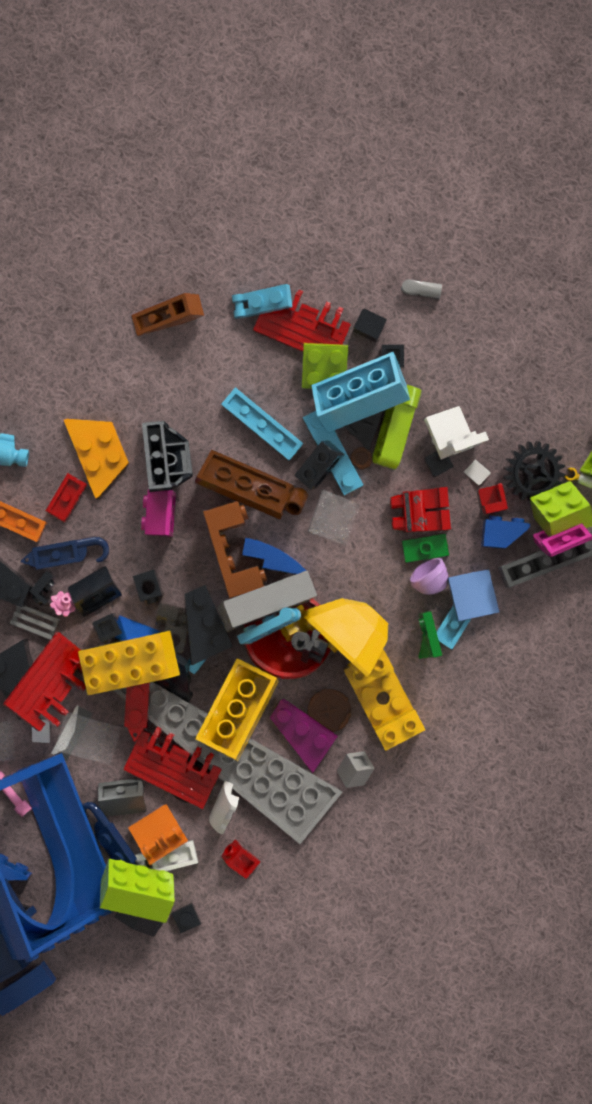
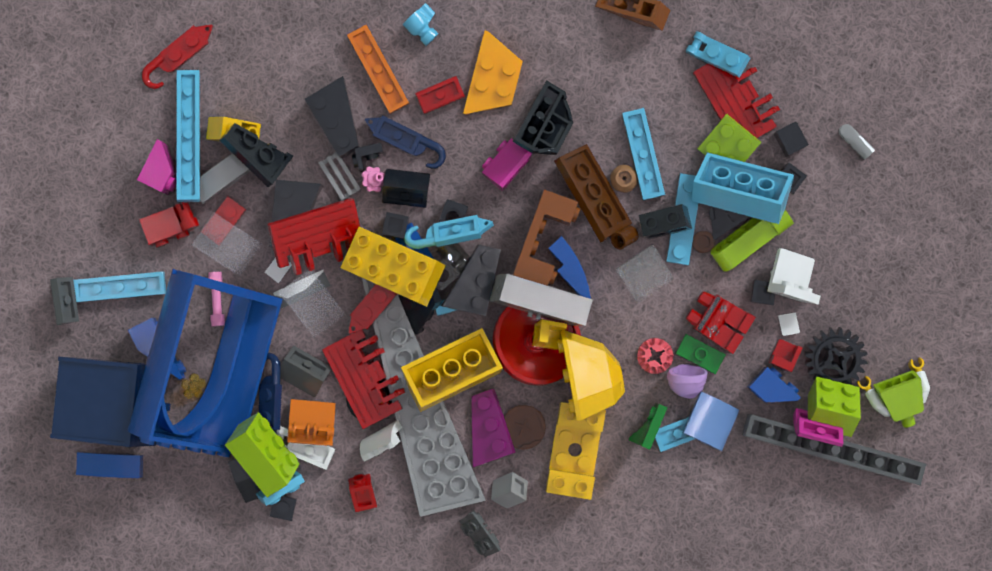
camera: 30 degrees right, 0 degrees up
(43, 875) = (193, 386): none -> clear yellow plant
(154, 601) = (450, 232): none -> medium azure plate
(179, 895) = (292, 486): none -> medium azure plate
(264, 461) = (617, 181): none -> medium nougat plate
(270, 625) = (529, 321): medium azure plate -> none
(311, 648) = (548, 365): black hips -> none
(366, 826) = (485, 543): none -> dark grey hinge
(386, 567) = (653, 366): none -> coral gear

